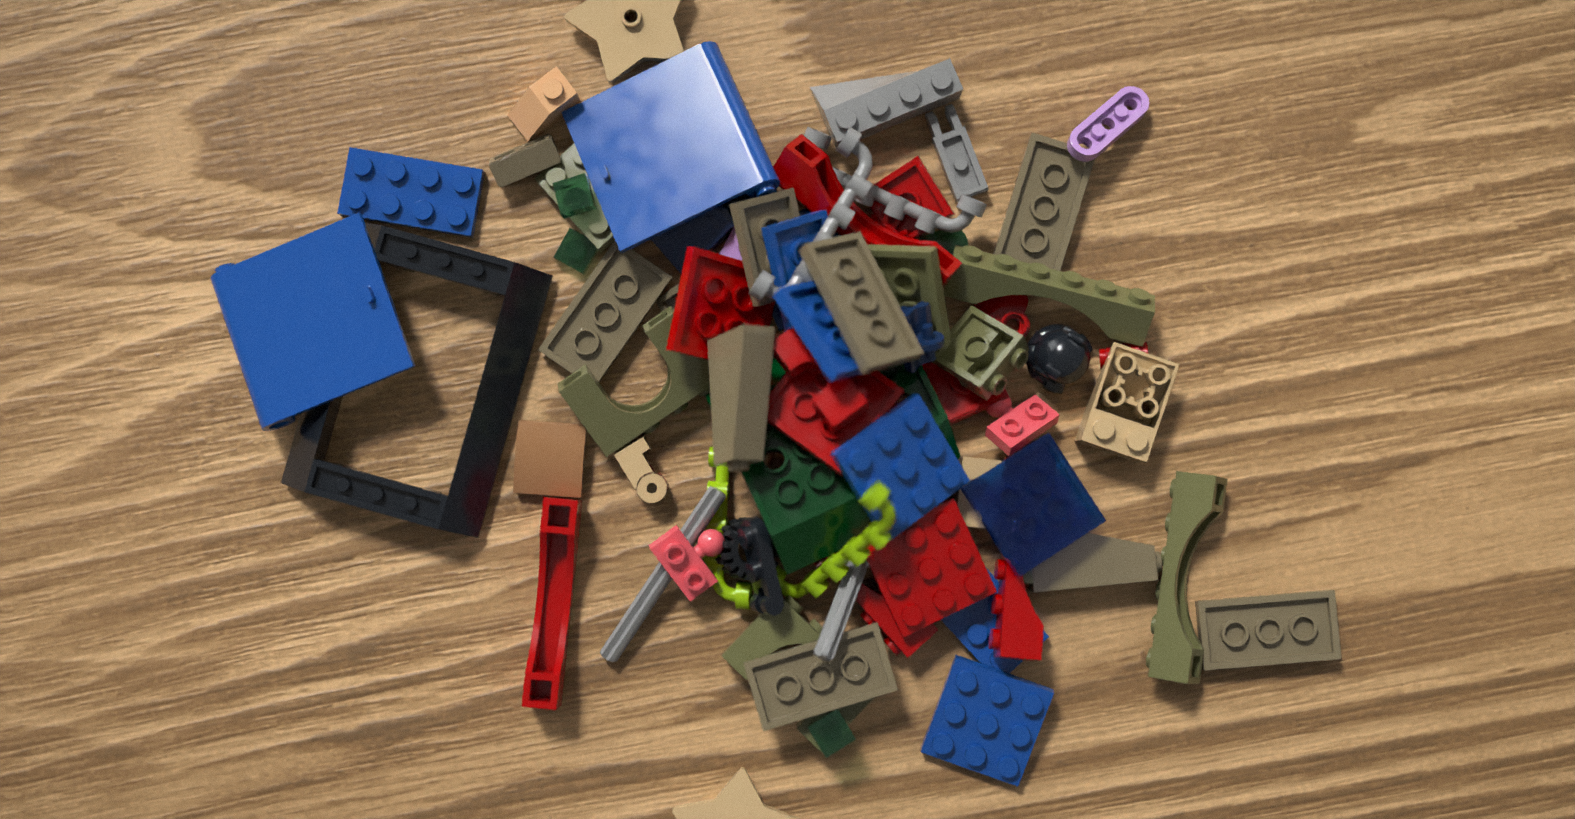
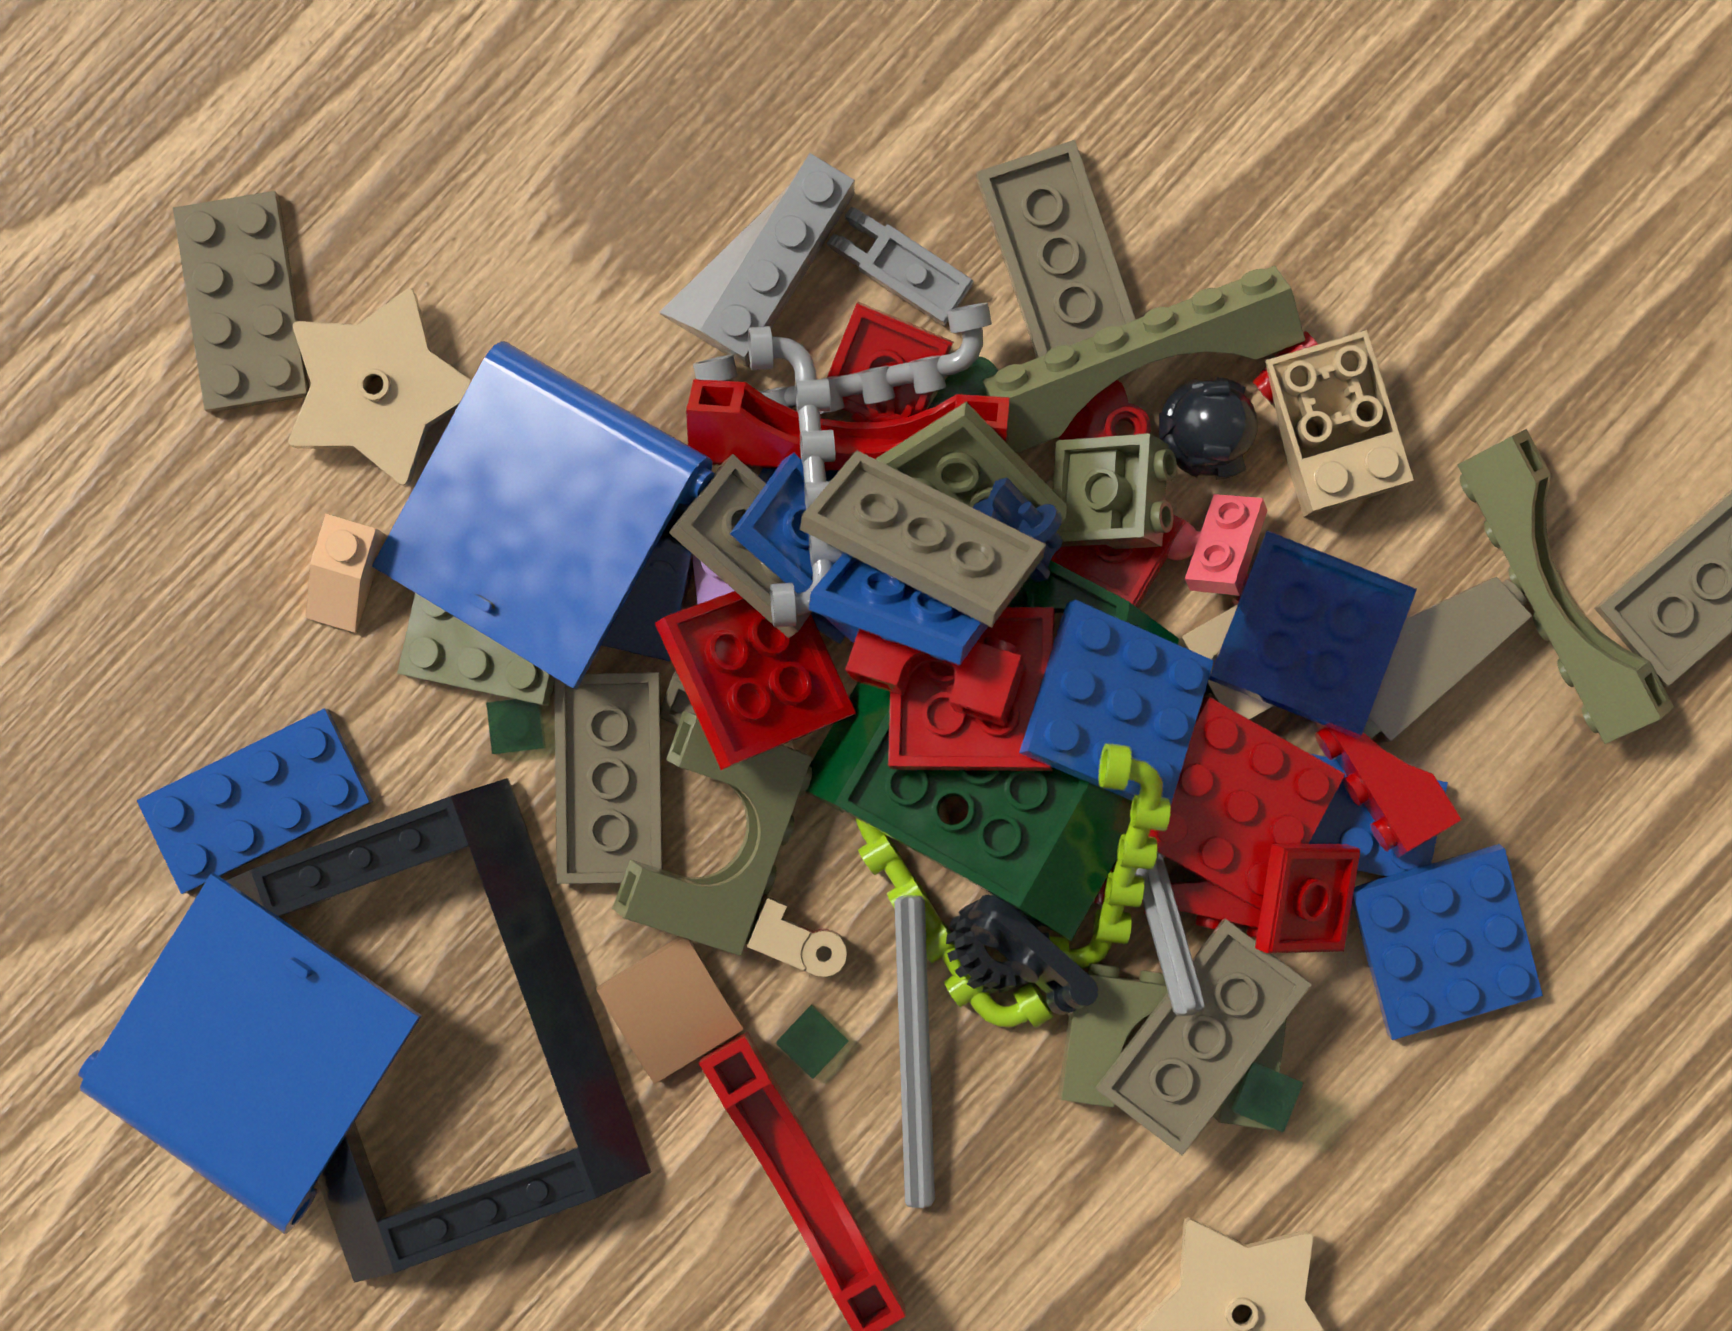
camera: 30 degrees left, 0 degrees up
(524, 160) = (368, 659): dark tan slope -> none
(574, 195) = (465, 659): clear green plate -> none
(612, 530) = (812, 1041): none -> clear green tile
(685, 562) = (932, 1015): coral plate -> none
(740, 394) = (854, 760): dark tan slope -> none
(929, 643) = (1307, 898): none -> red plate
(1113, 114) = (1060, 78): lavender plate -> none

